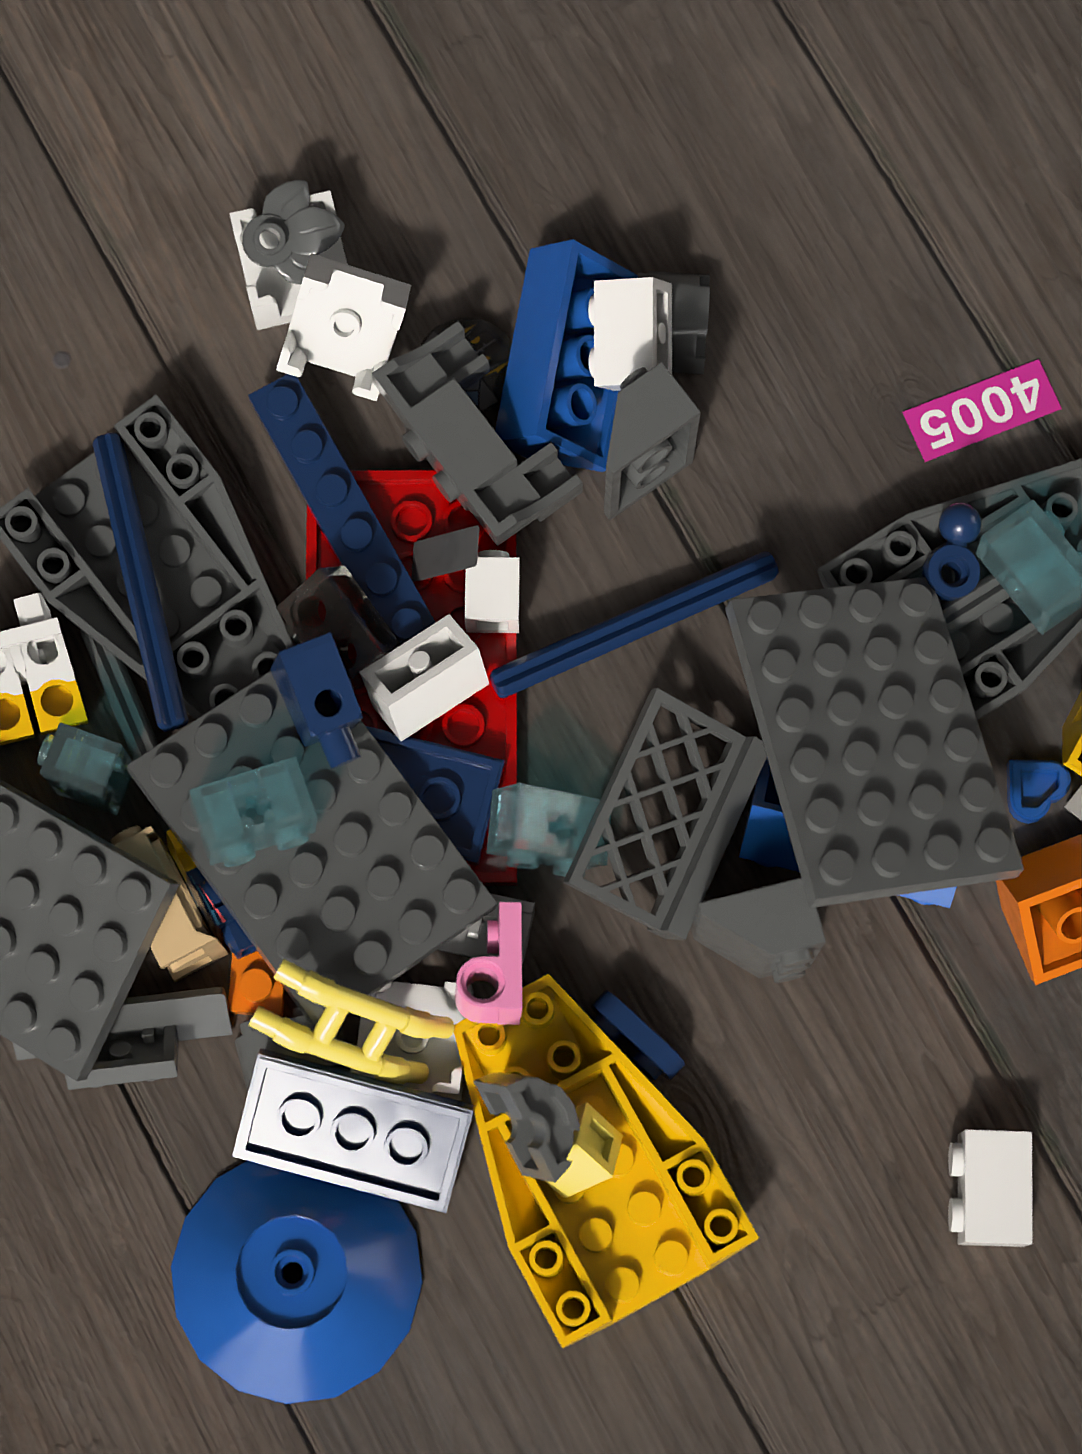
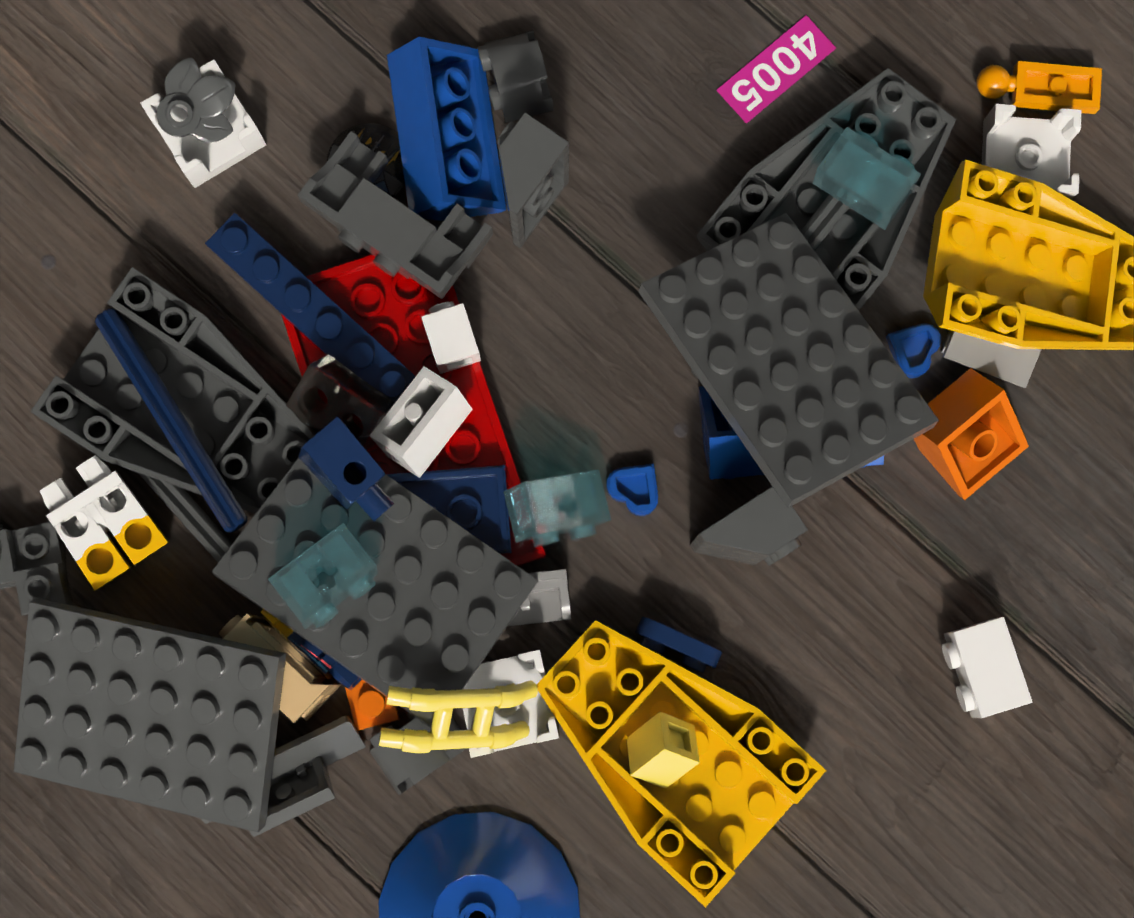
camera: 20 degrees left, 5 degrees up
(85, 767) = (178, 581): clear light blue brick -> none
(344, 322) = (261, 160): white panel -> none
(353, 1130) = (486, 793): tile -> none
(445, 553) = (404, 318): flat silver sticker -> none
(501, 971) = (563, 633): bright pink plate -> none
(540, 1119) = (631, 742): dark grey cylinder -> none
(629, 328) = (487, 94): white brick -> none
(633, 624) = (567, 325): dark blue axle -> none
(663, 841) = (635, 487): none -> blue tile
(708, 832) = (679, 471): dark grey fence -> none
(958, 526) = (795, 165): dark blue plate -> none

